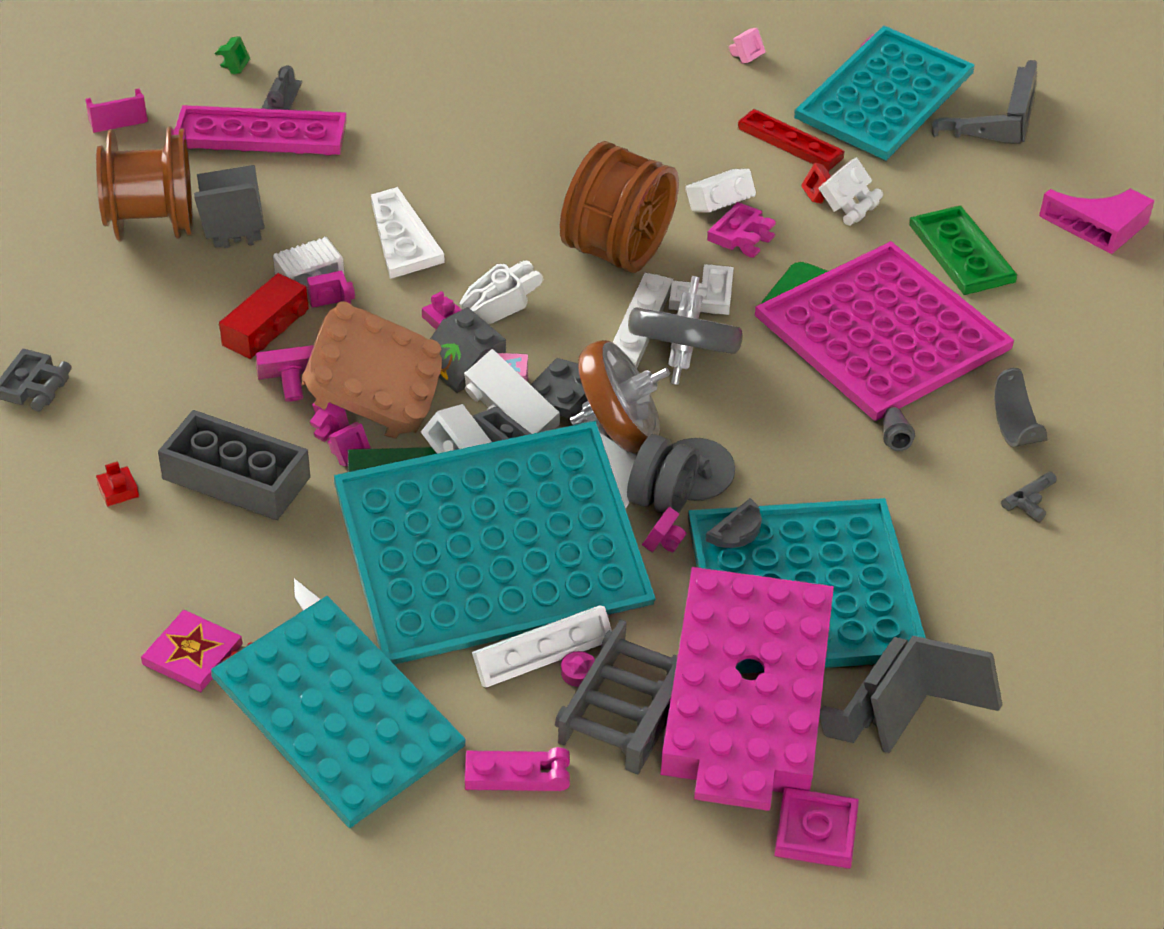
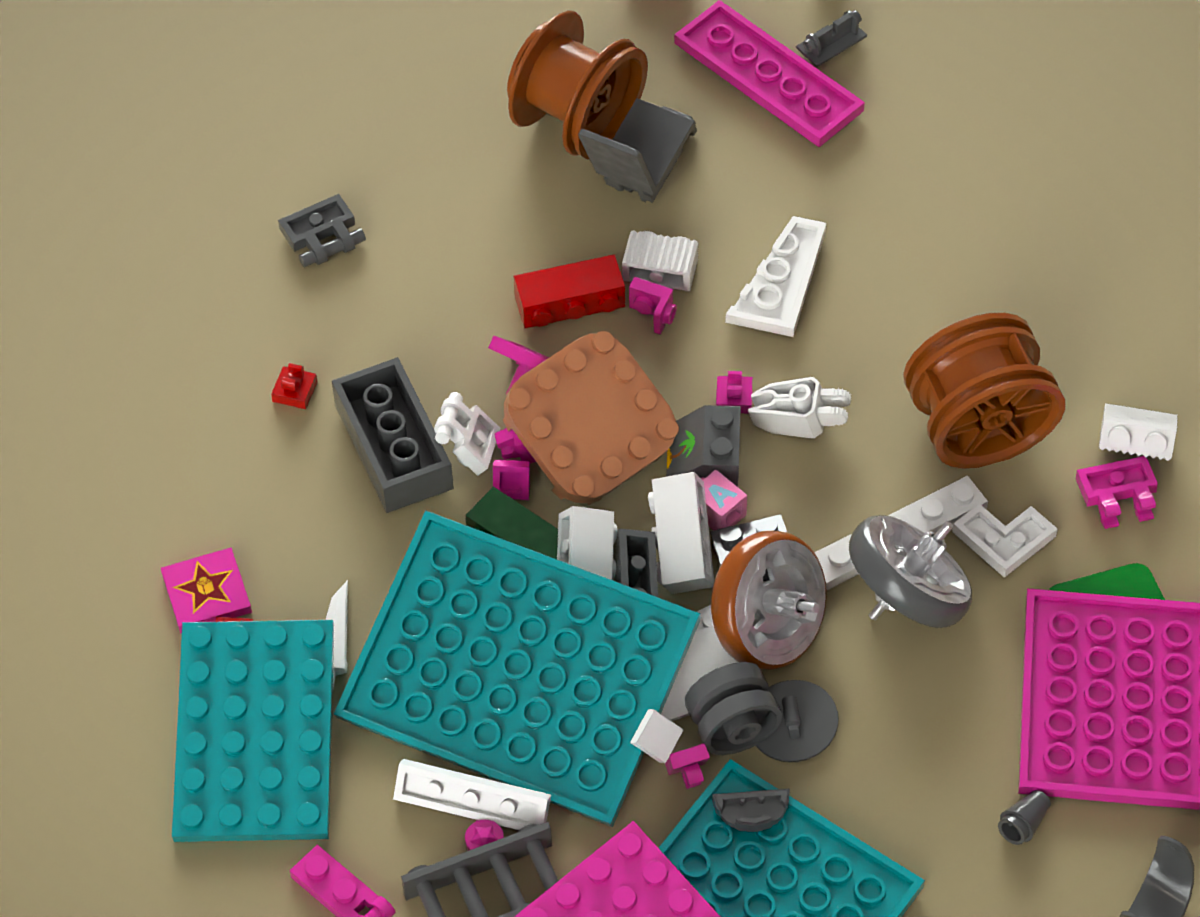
camera: 45 degrees right, 10 degrees up
(290, 428) = (469, 430): none -> white plate
(637, 518) = (656, 736): none -> white tile

